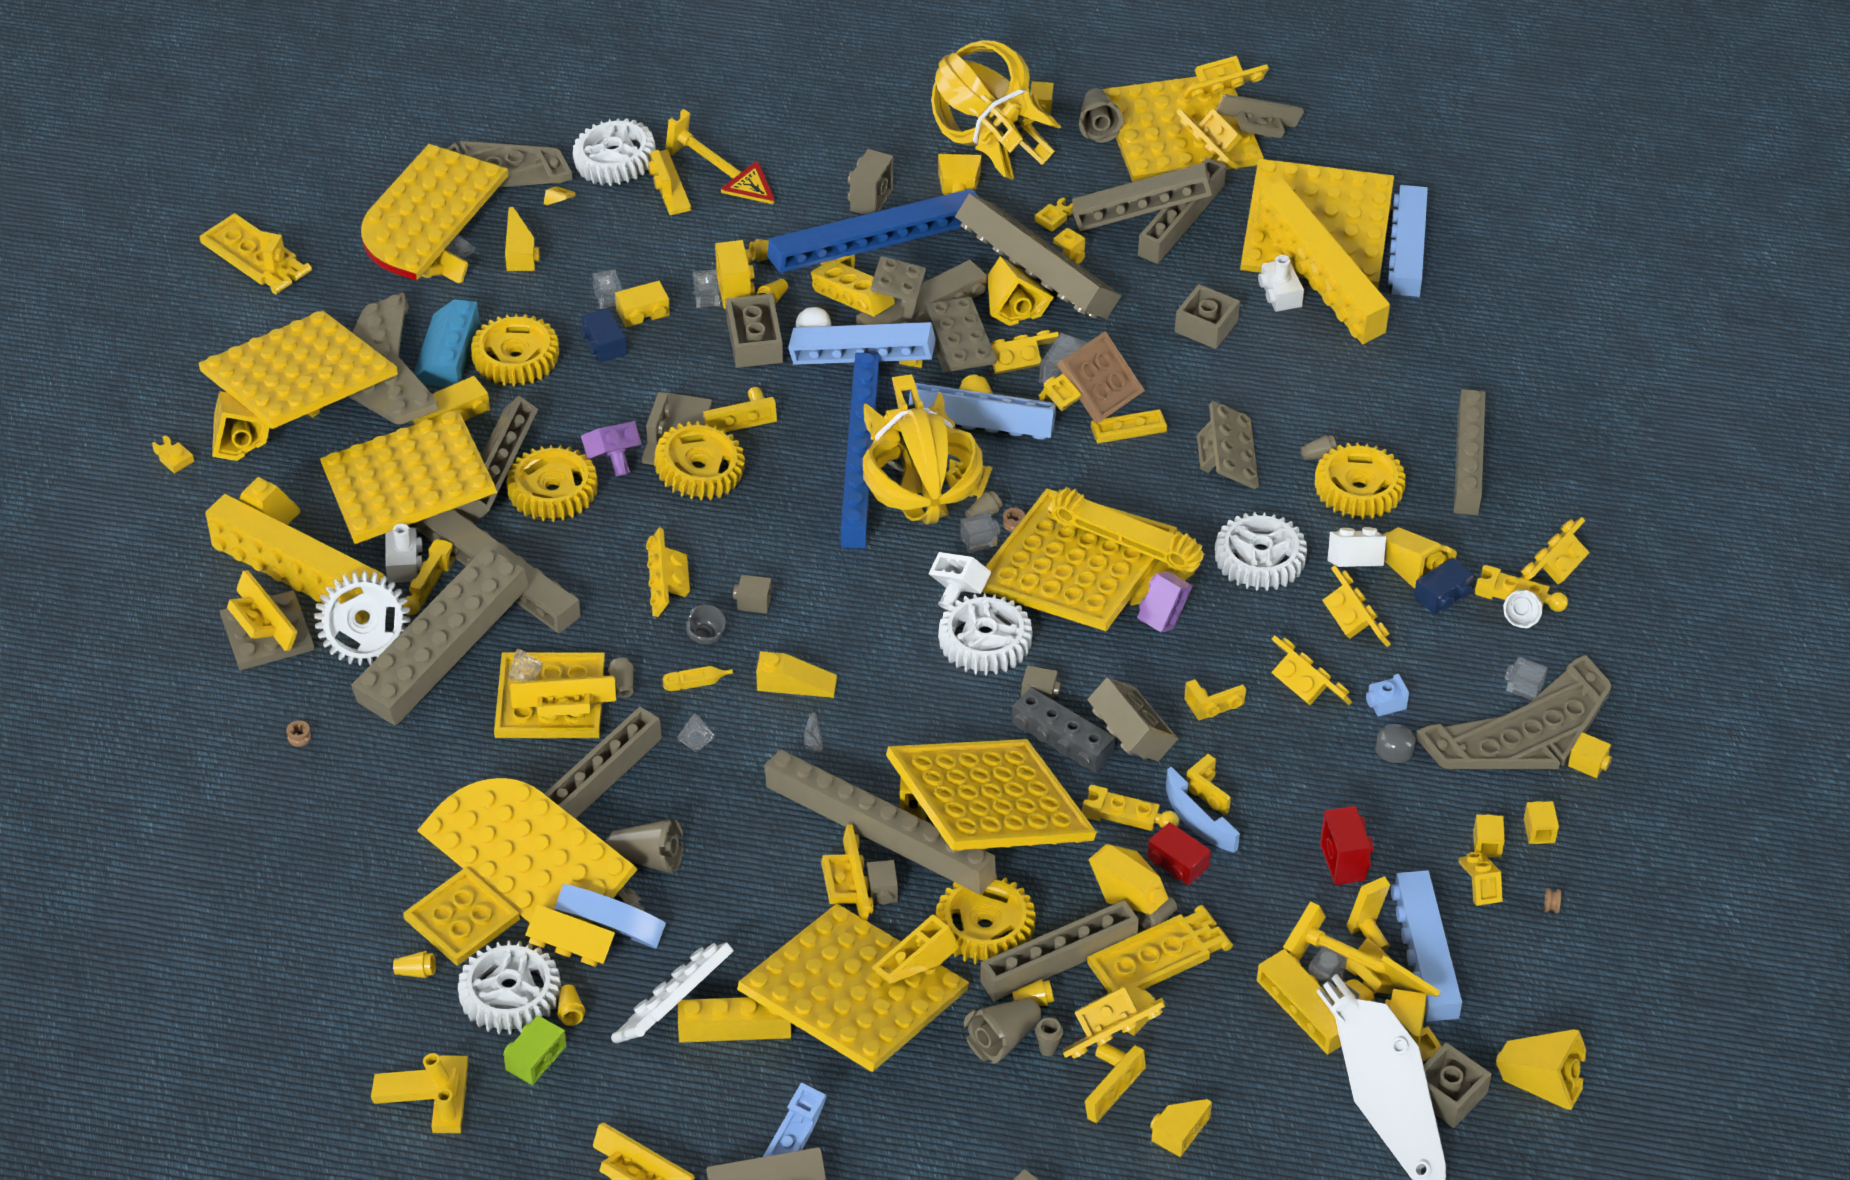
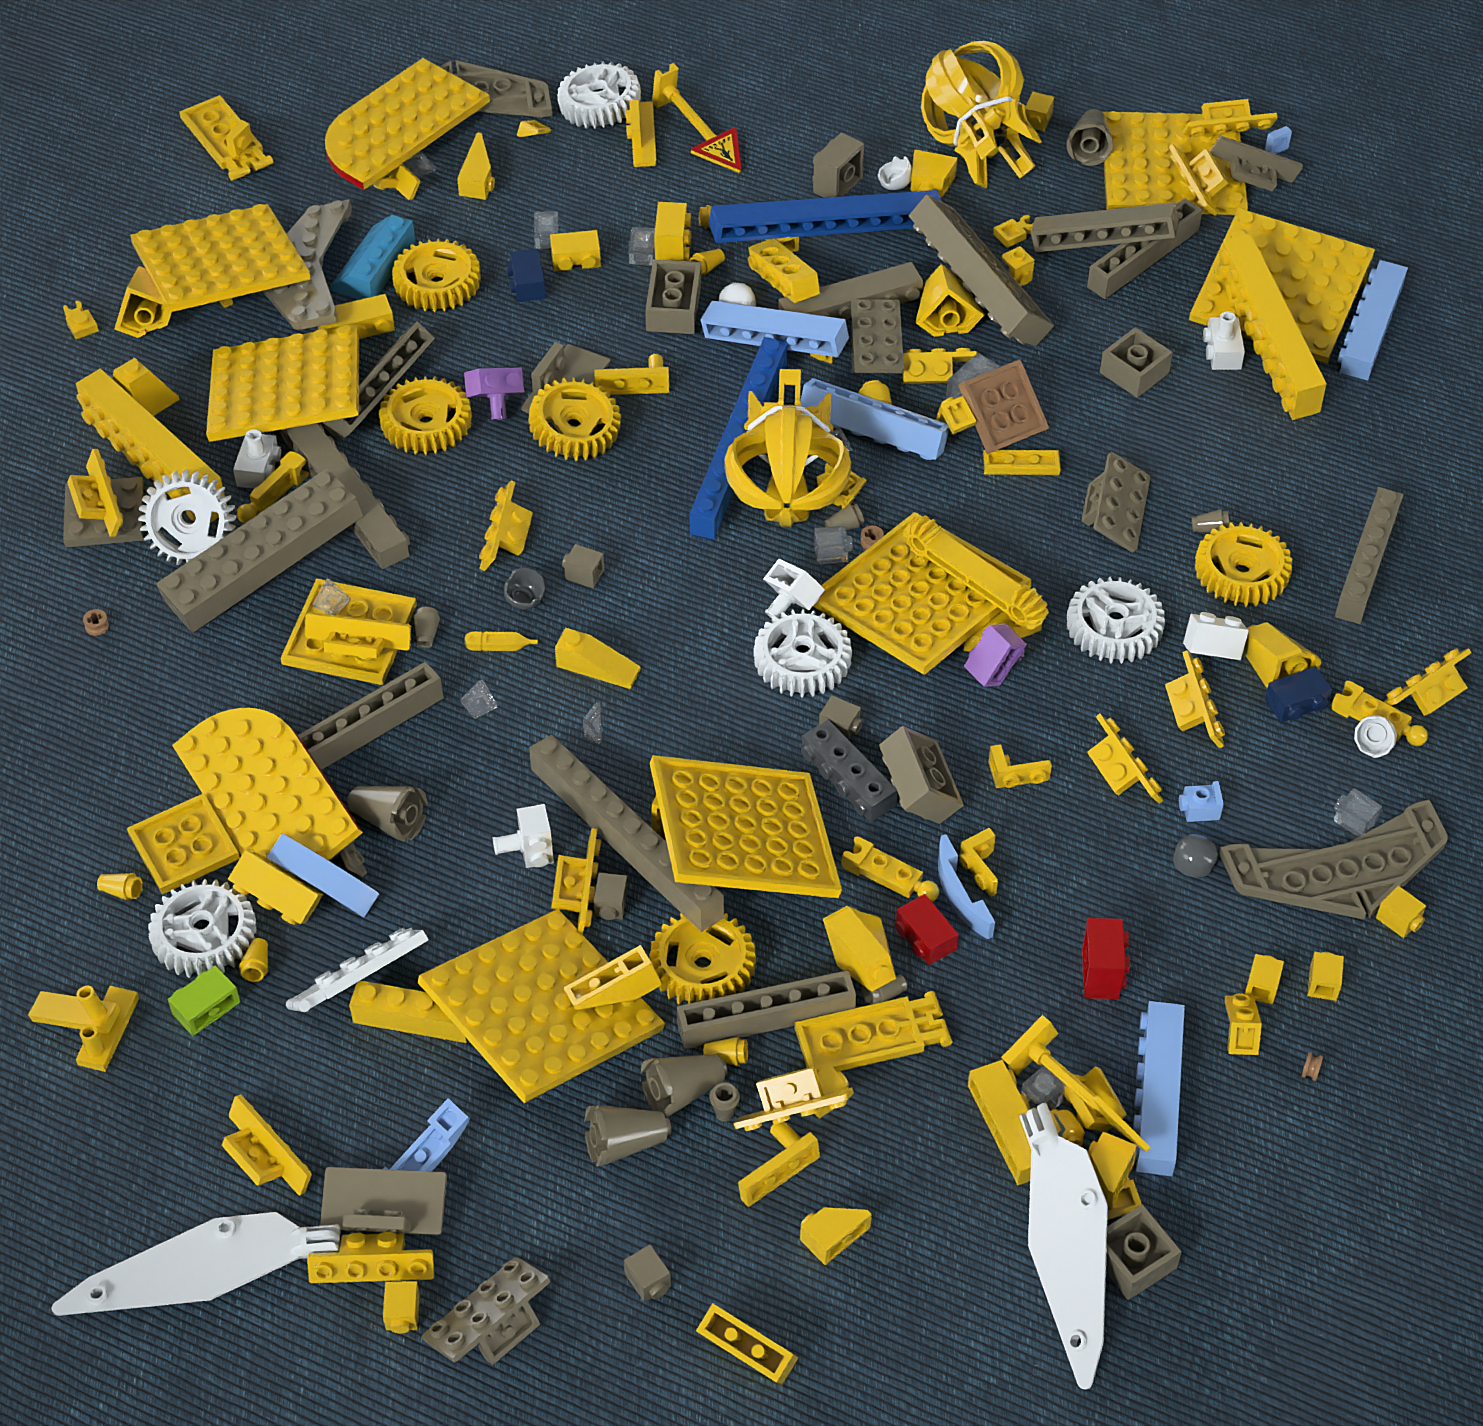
camera: 15 degrees right, 5 degrees up
(795, 844) = (531, 838): none -> white brick
(899, 281) = (828, 272): dark tan bracket -> none
(926, 180) = (895, 174): none -> white hair
(963, 1081) = (622, 1132): none -> dark tan cone
(1273, 89) = (1278, 140): none -> light blue plate
(1367, 909) = (1103, 1038): yellow piece -> none
(1545, 1066) = (1248, 1254): yellow slope -> none

